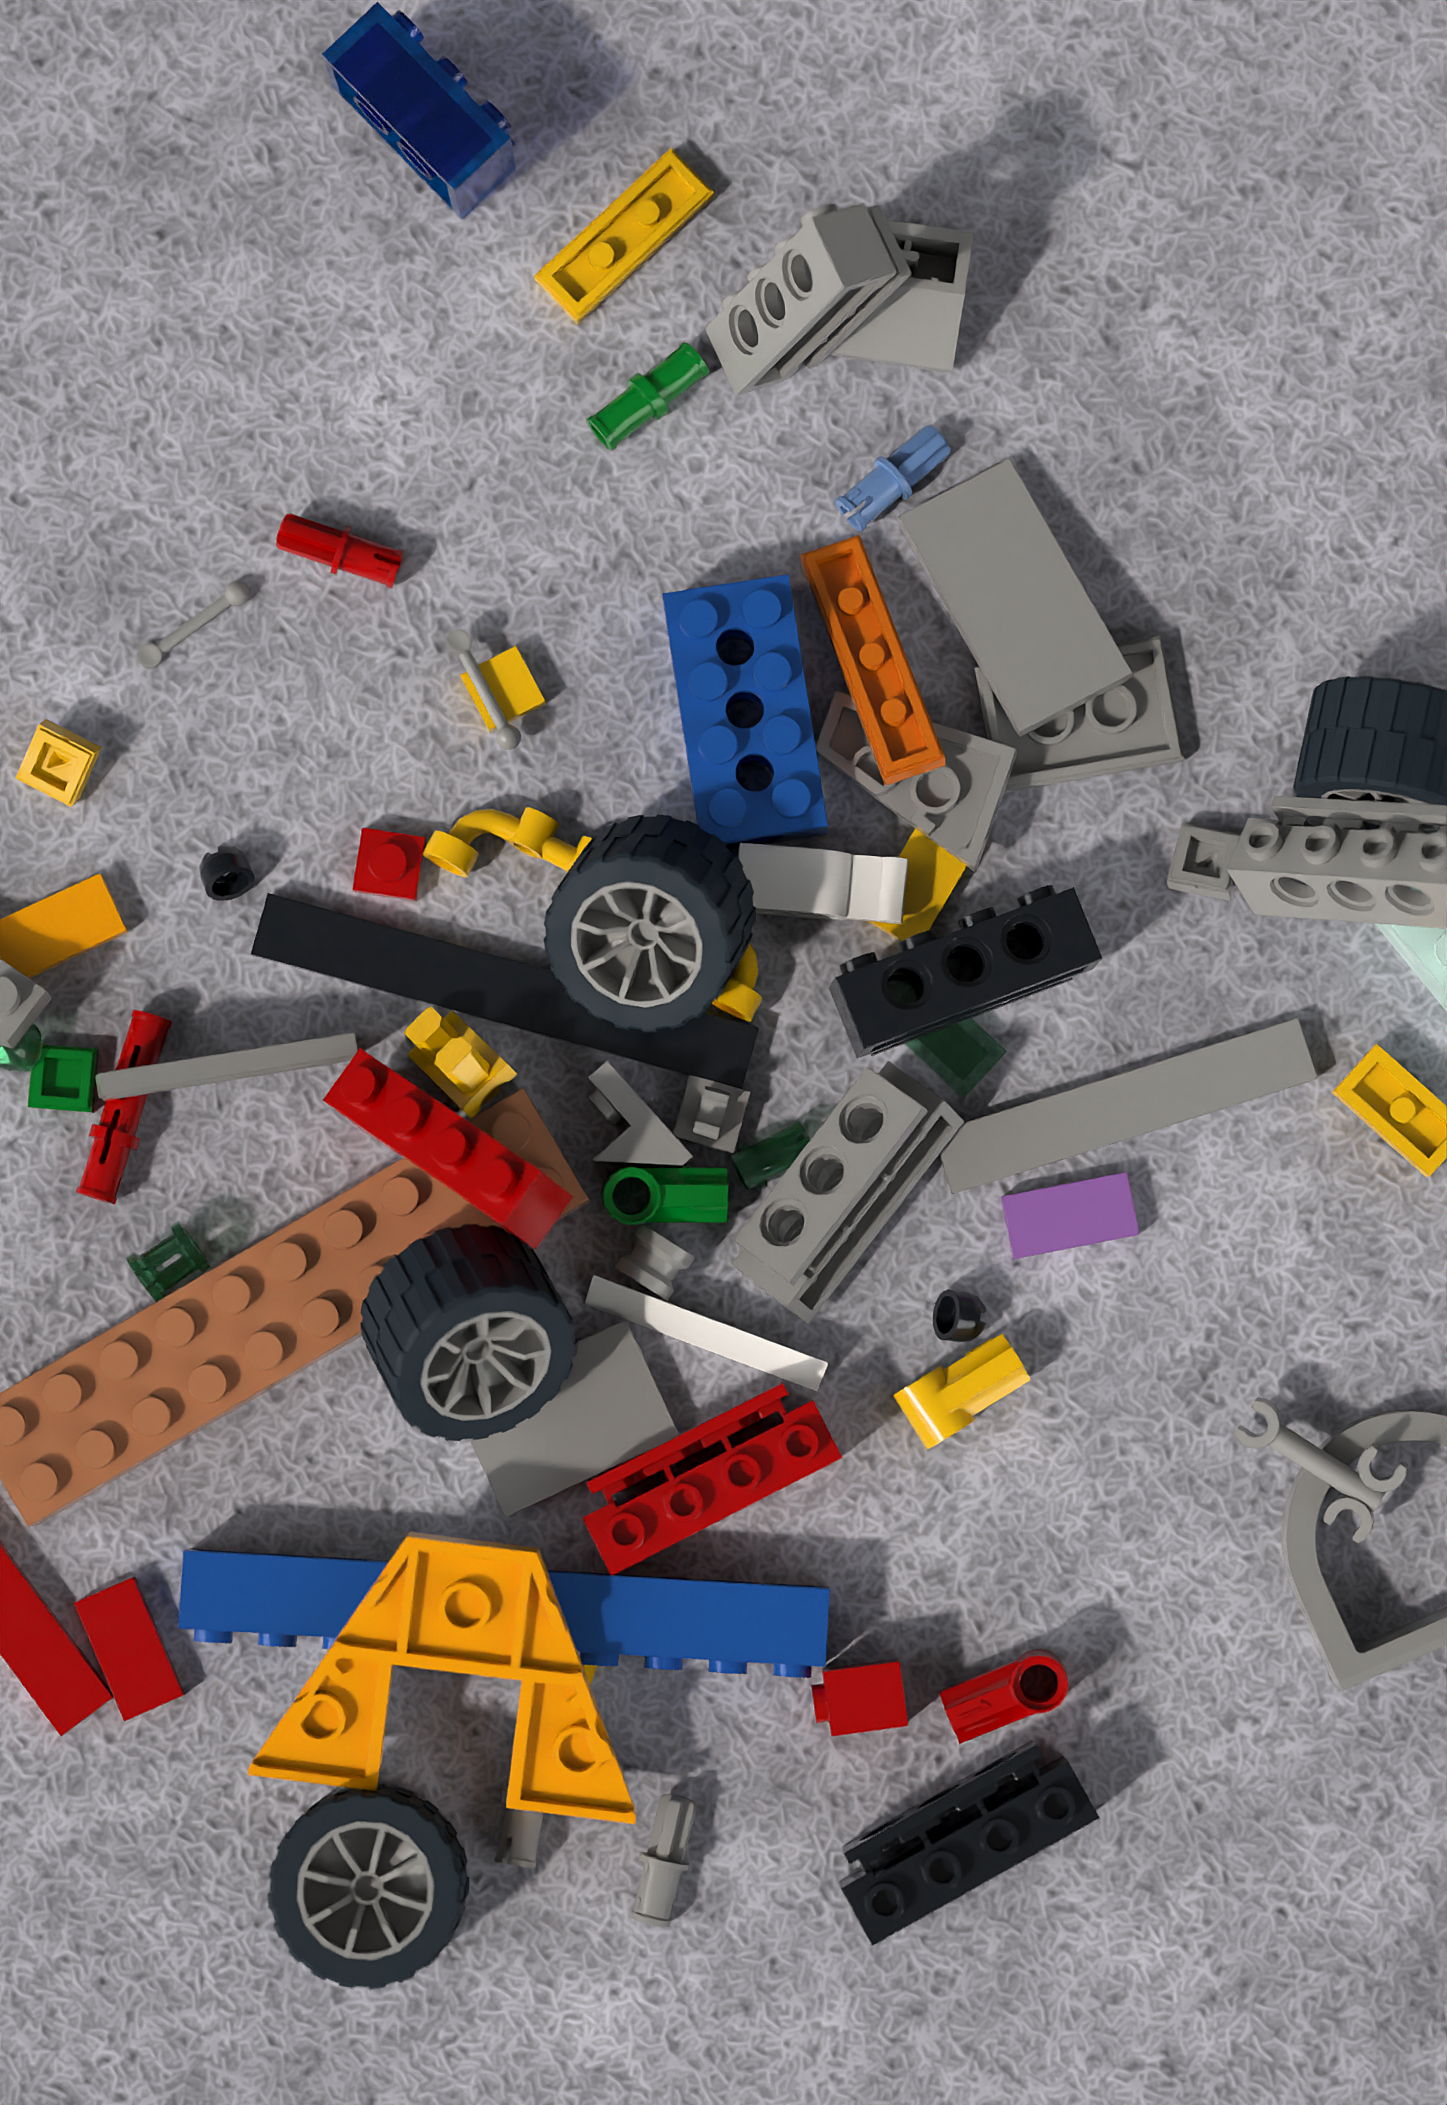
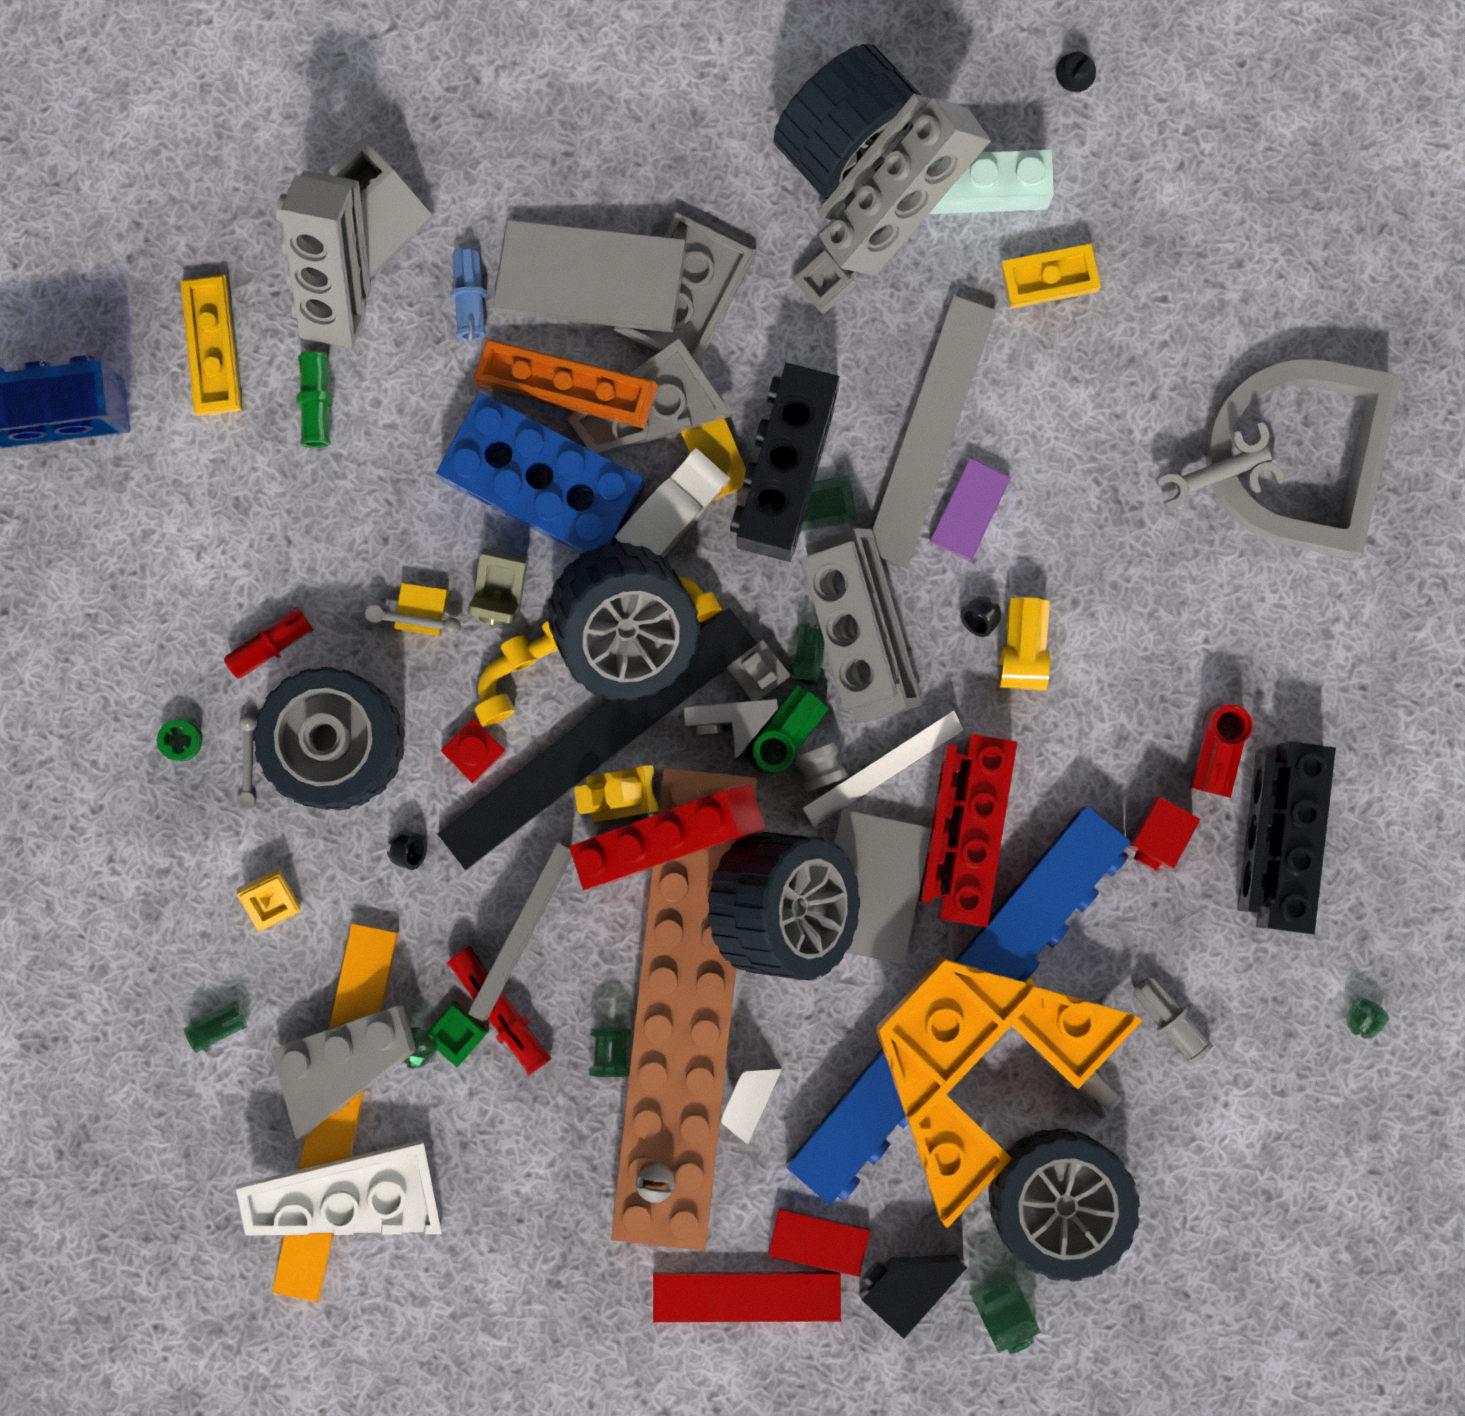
camera: 50 degrees left, 0 degrees up
(73, 1410) = (658, 1173): none -> light grey hinge
(142, 532) = (171, 751): none -> green bush
(151, 1783) = (908, 1287): none -> black slope
(201, 1913) = (1006, 1314): none -> clear green brick
(226, 1456) = (749, 1102): none -> white sticker
(282, 697) = (328, 739): none -> wheel
(589, 756) = (498, 587): none -> olive bracket
(826, 2078) = (1366, 1018): none -> clear green hinge

